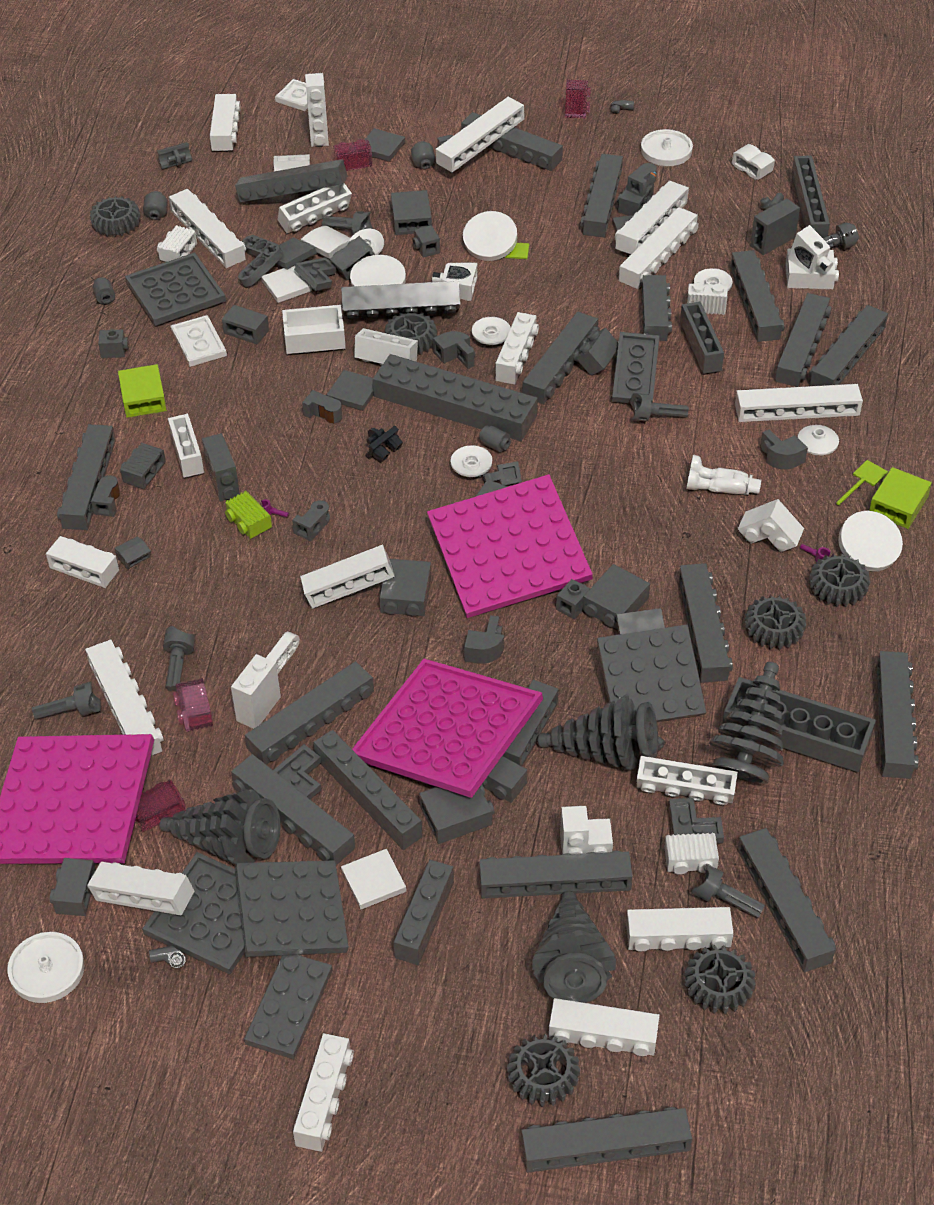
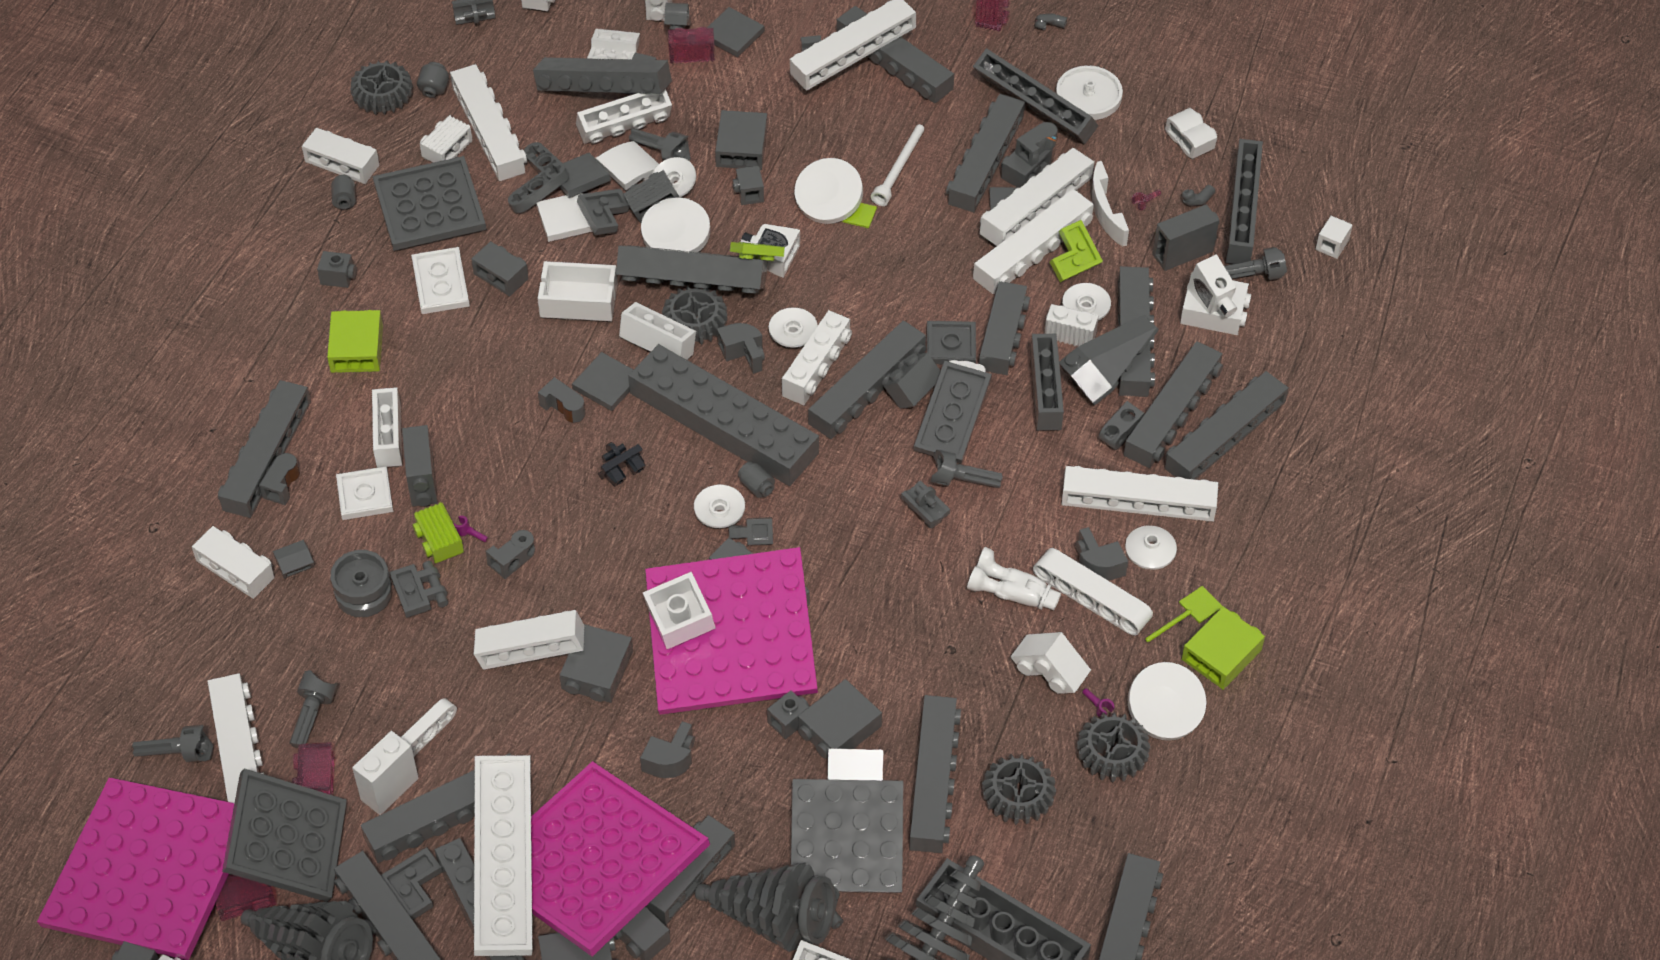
camera: 10 degrees right, 5 degrees up
(93, 265) = (340, 155): none -> white brick
(142, 465) = (332, 444): dark grey brick -> none
(178, 497) = (364, 493): none -> white tile
(182, 752) = (284, 835): none -> dark grey plate
(195, 559) = (361, 583): none -> dark grey wheel
(237, 560) = (411, 591): none -> dark grey plate
(337, 134) = (677, 15): none -> dark grey plate
(374, 736) = (502, 856): none -> white plate
(423, 155) = (777, 57): dark grey head -> none
(452, 274) = (757, 251): none -> lime plate
(466, 532) = (679, 610): none -> white brick
(531, 233) = (882, 193): none -> white piece
(617, 321) = (951, 341): none -> dark grey tile
(633, 152) = (1036, 96): none -> dark grey brick
(635, 433) = (926, 504): none -> dark grey hips
(697, 250) = (1081, 253): none -> lime plate
(713, 227) = (1112, 223): none -> white slope
(731, 209) = (1142, 198): none -> clear pink hand
(738, 319) = (1101, 361): none -> dark grey wedge
(768, 360) = (1120, 425): none -> dark grey leg
(786, 475) = (1093, 591): none -> white beam
(884, 213) = (1334, 237): none -> white brick

